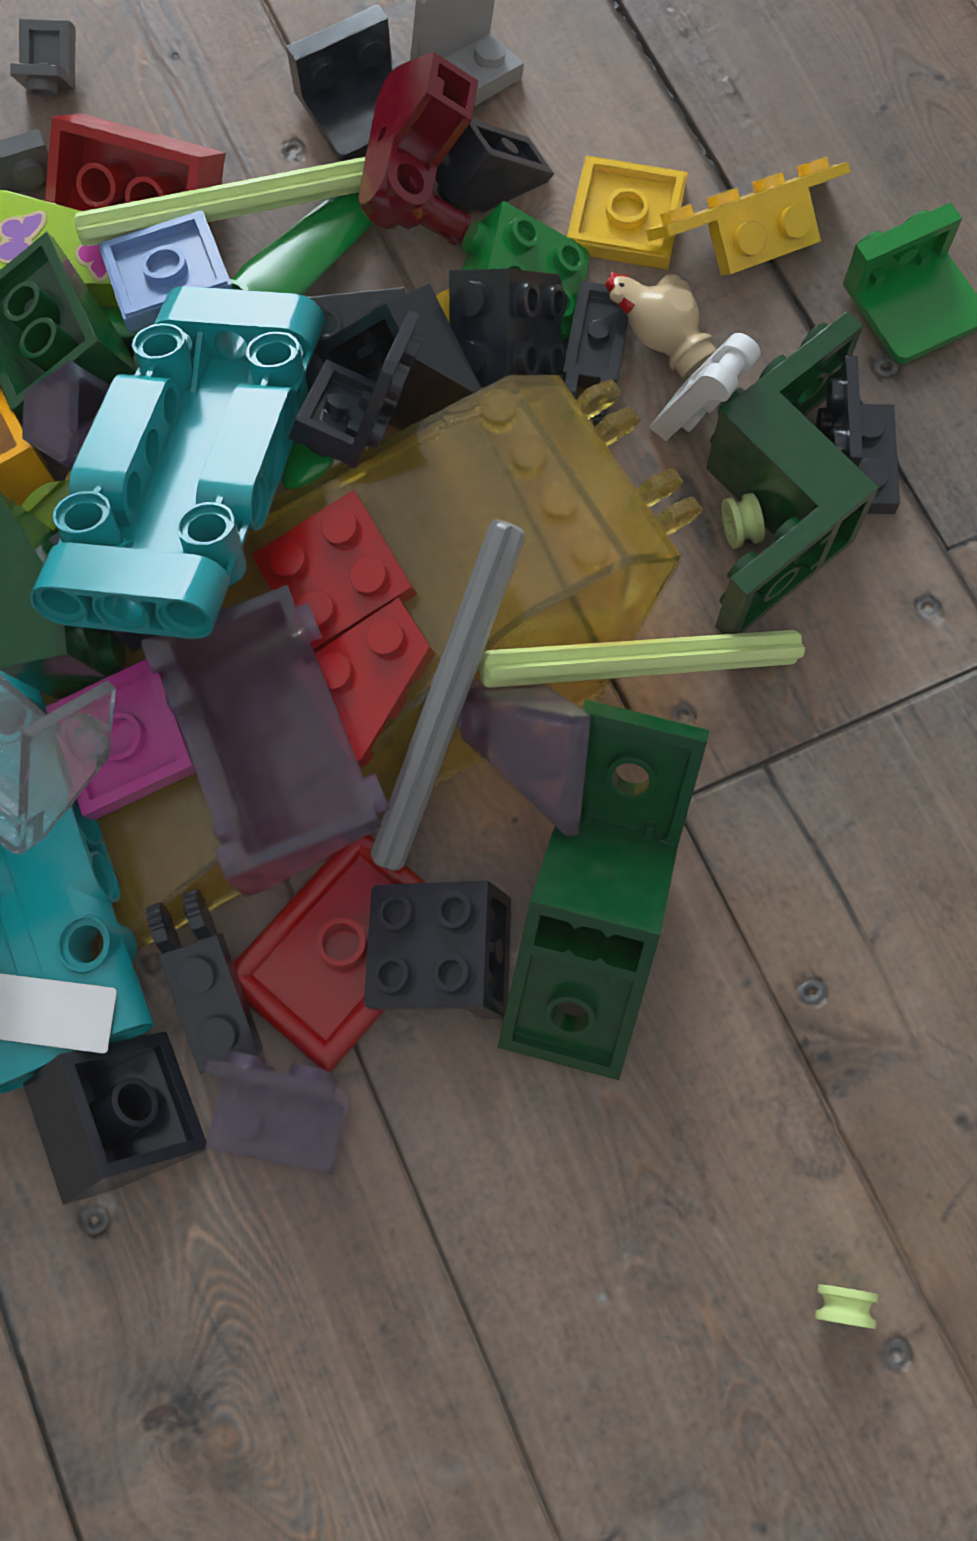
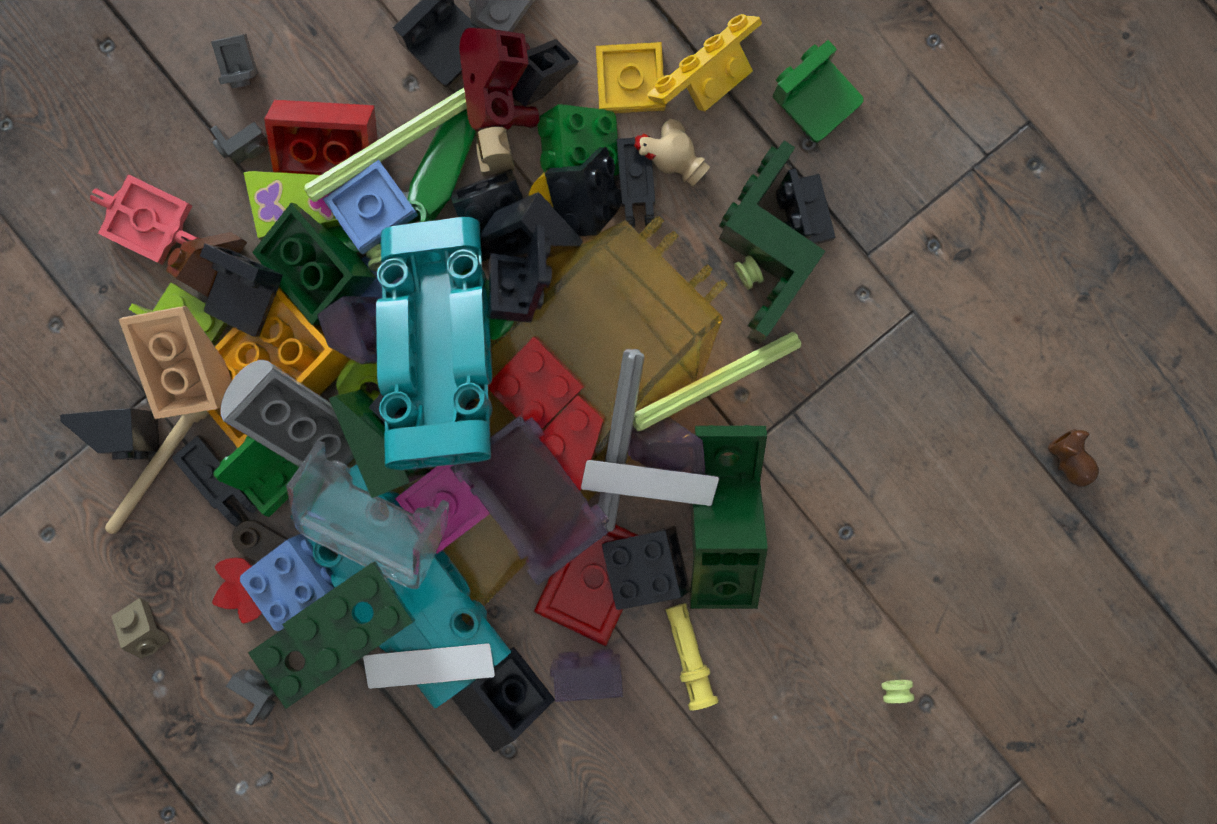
camera: 20 degrees left, 15 degrees up
(204, 983) = (529, 621): black hinge -> none
(385, 245) = (494, 151): none -> tan leg
(473, 1164) = (694, 672): none -> light yellow pin
(481, 777) = (649, 482): none -> white sticker
(707, 386) = (711, 204): white plate -> none

